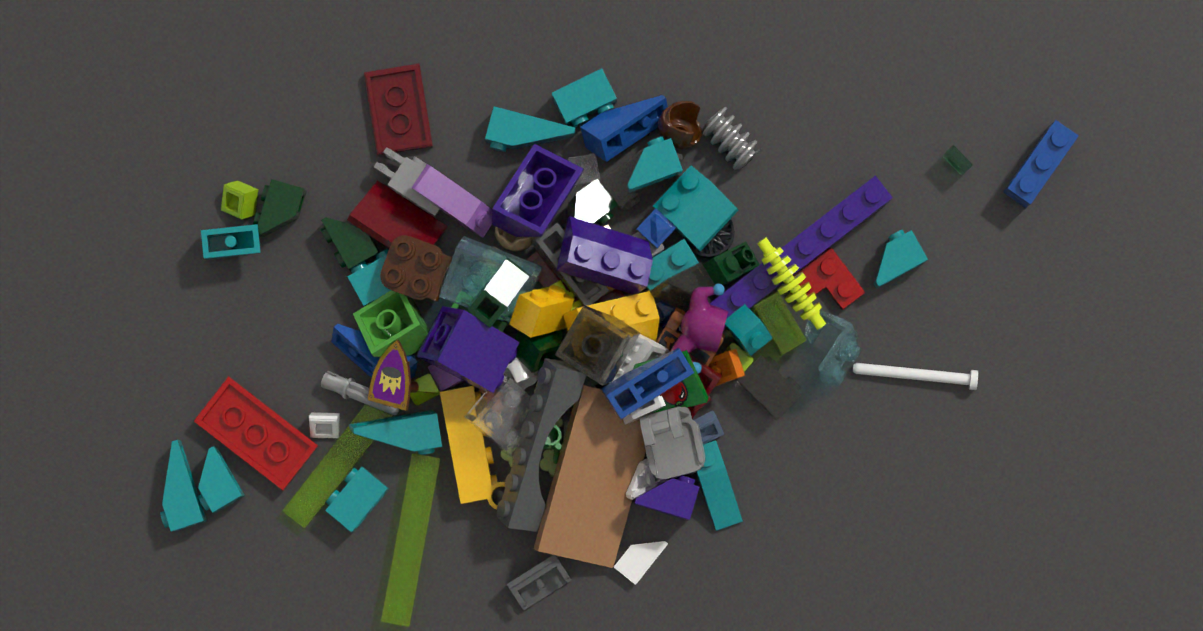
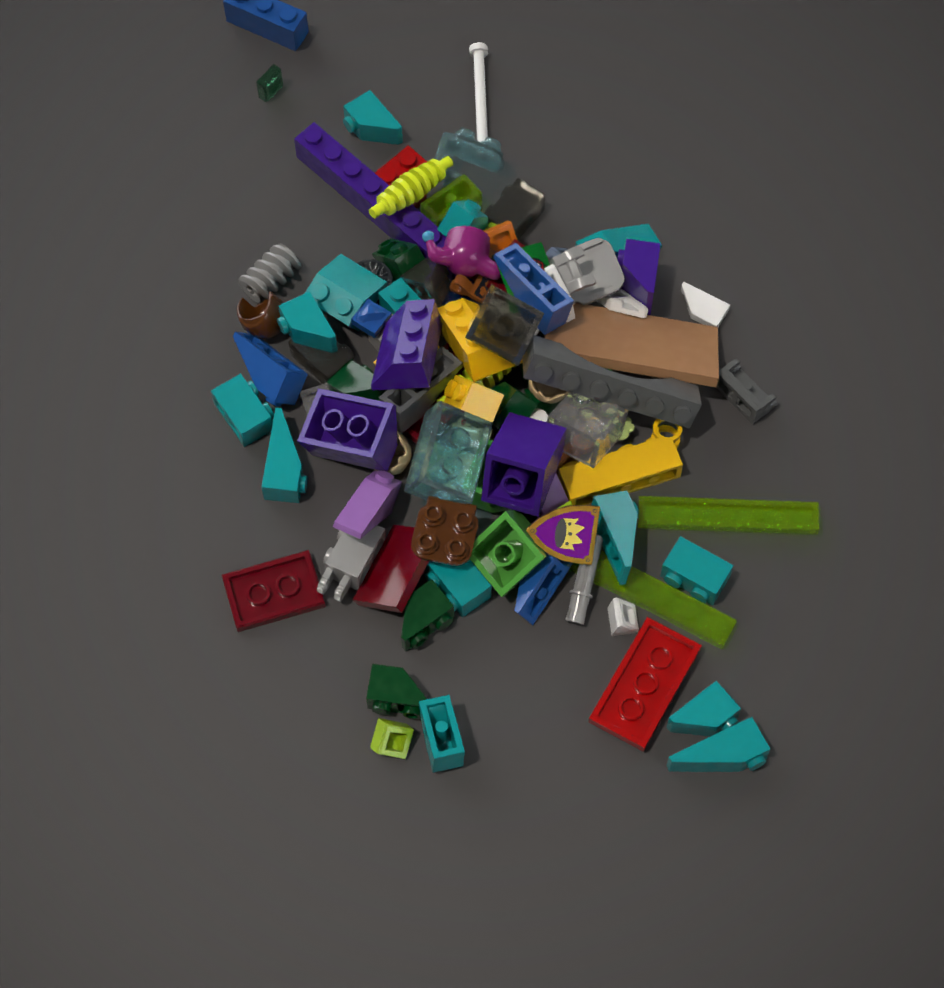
camera: 95 degrees left, 20 degrees down
(498, 292) = (462, 430): slope -> none

